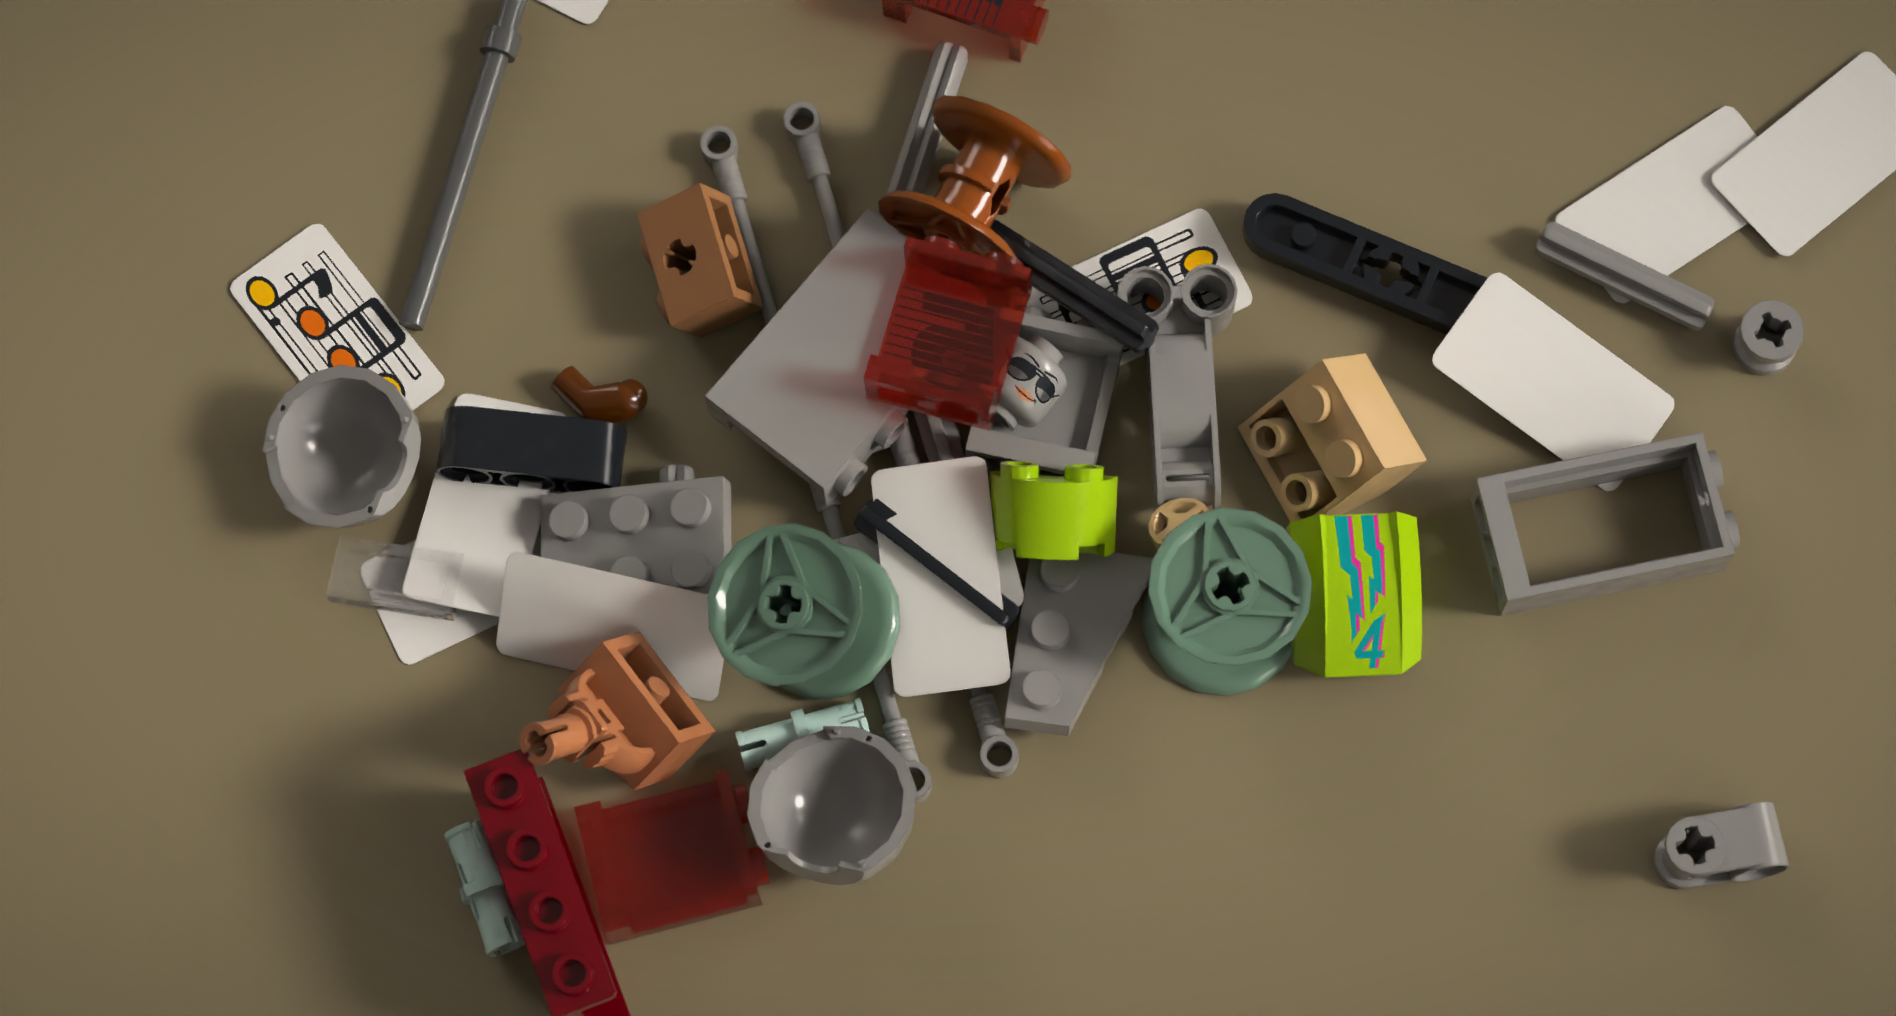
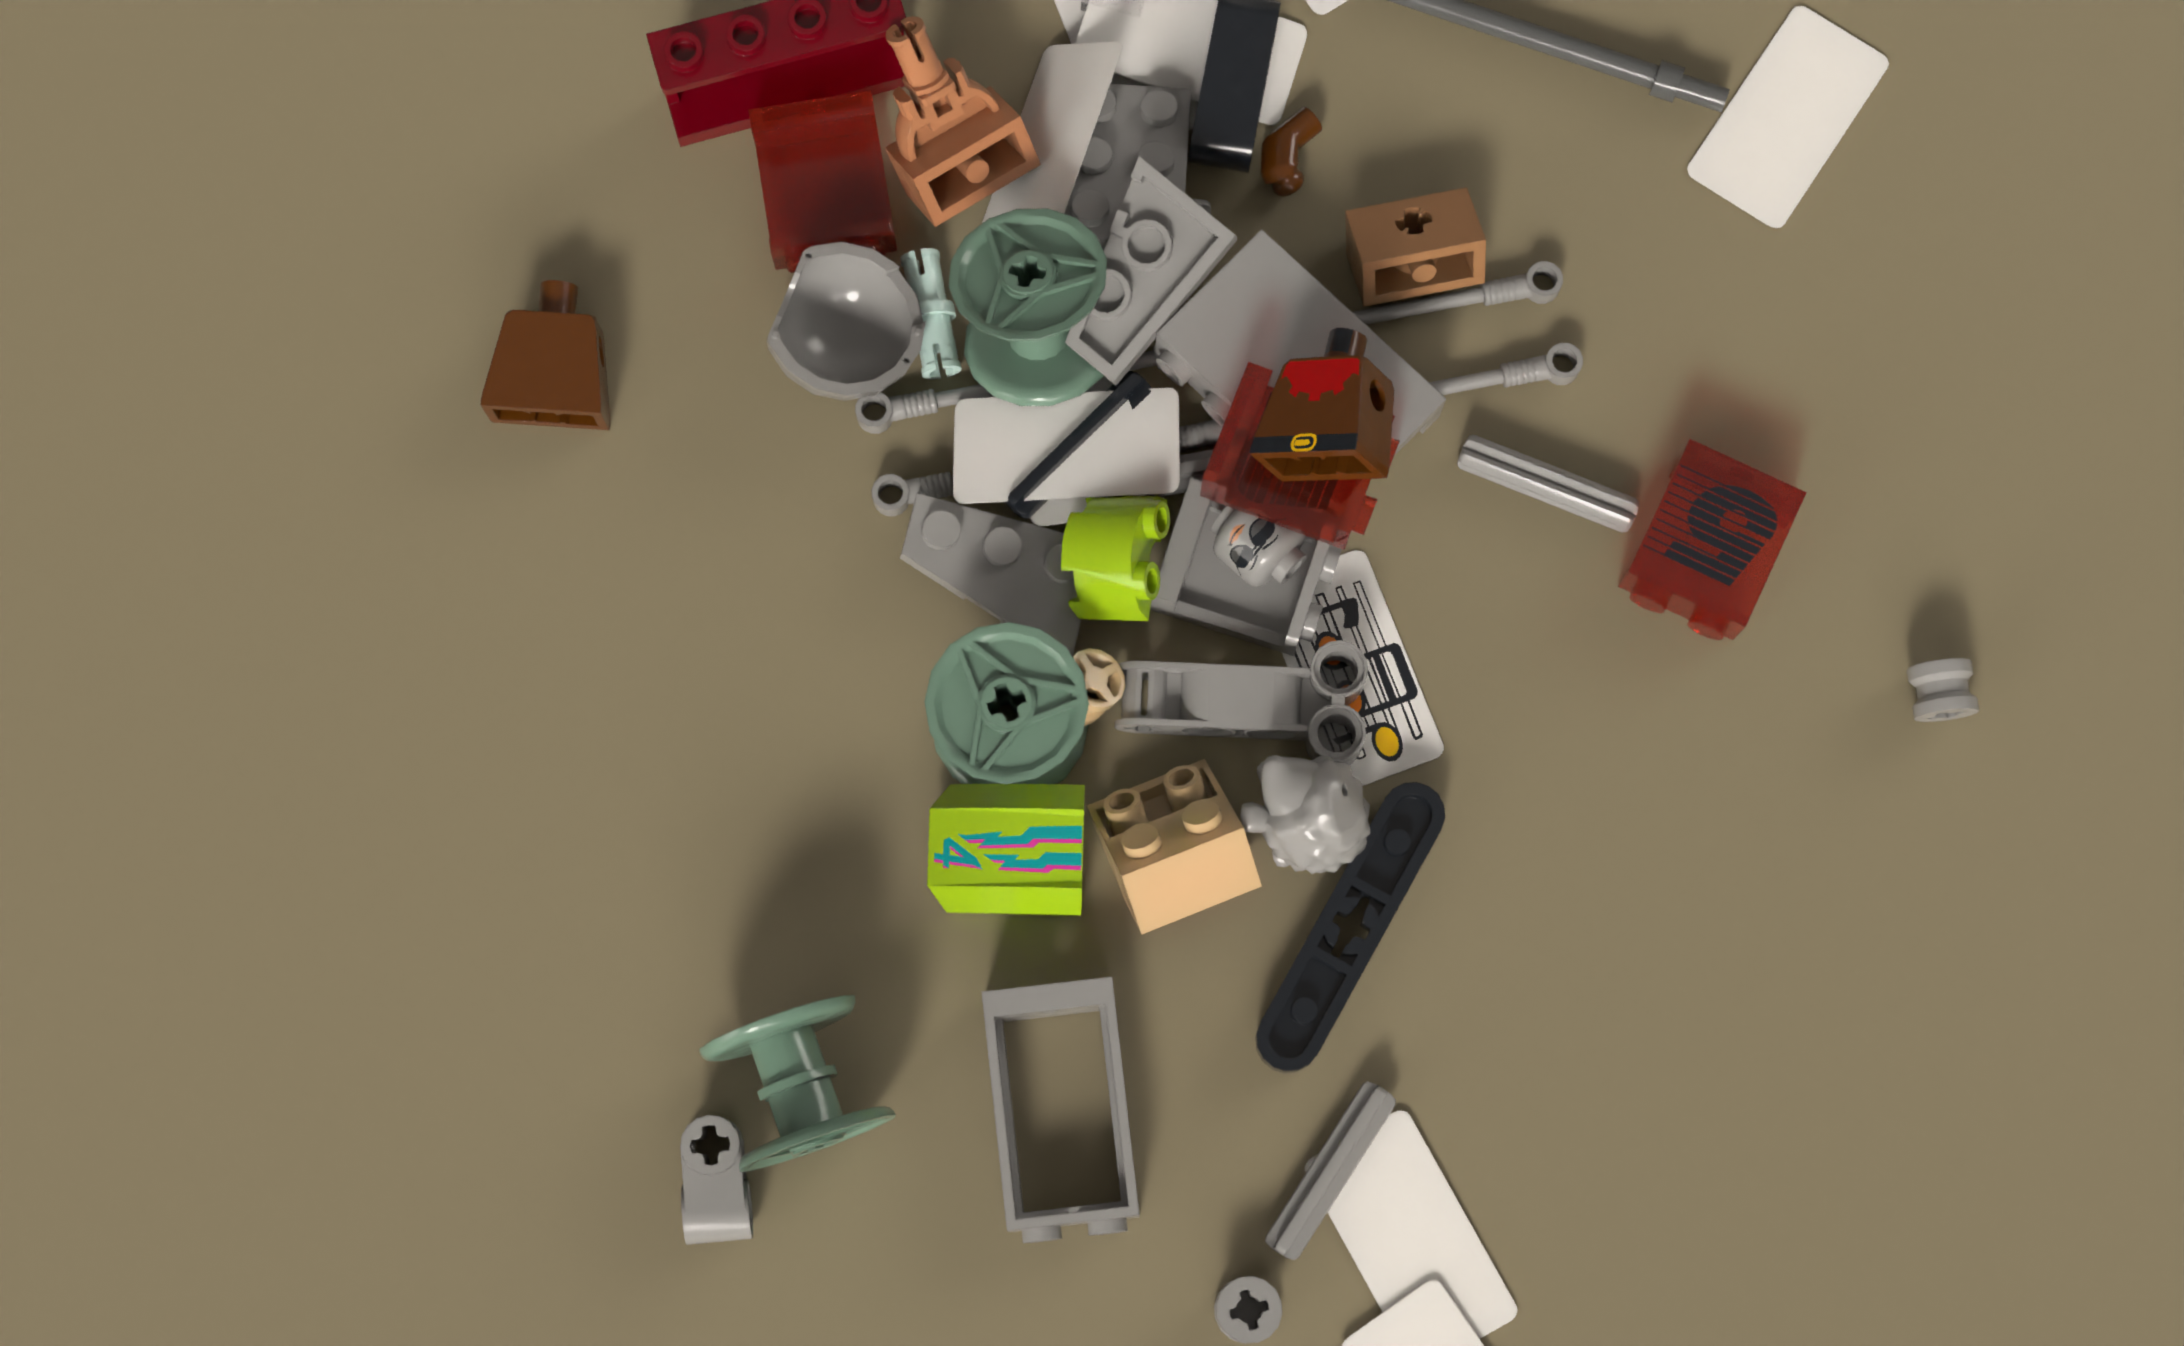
camera: 90 degrees right, 5 degrees up
(741, 484) = (1155, 261): none -> light grey wing
(912, 295) = (1328, 416): none -> reddish brown torso
(974, 189) = (1460, 506): dark orange piece -> none
(1081, 294) = (1364, 586): black axle -> none
(1291, 309) = (1310, 813): none -> light grey animal
(1549, 375) = (1221, 1076): white sticker -> none
(1627, 761) = (796, 1081): none -> sand green piece

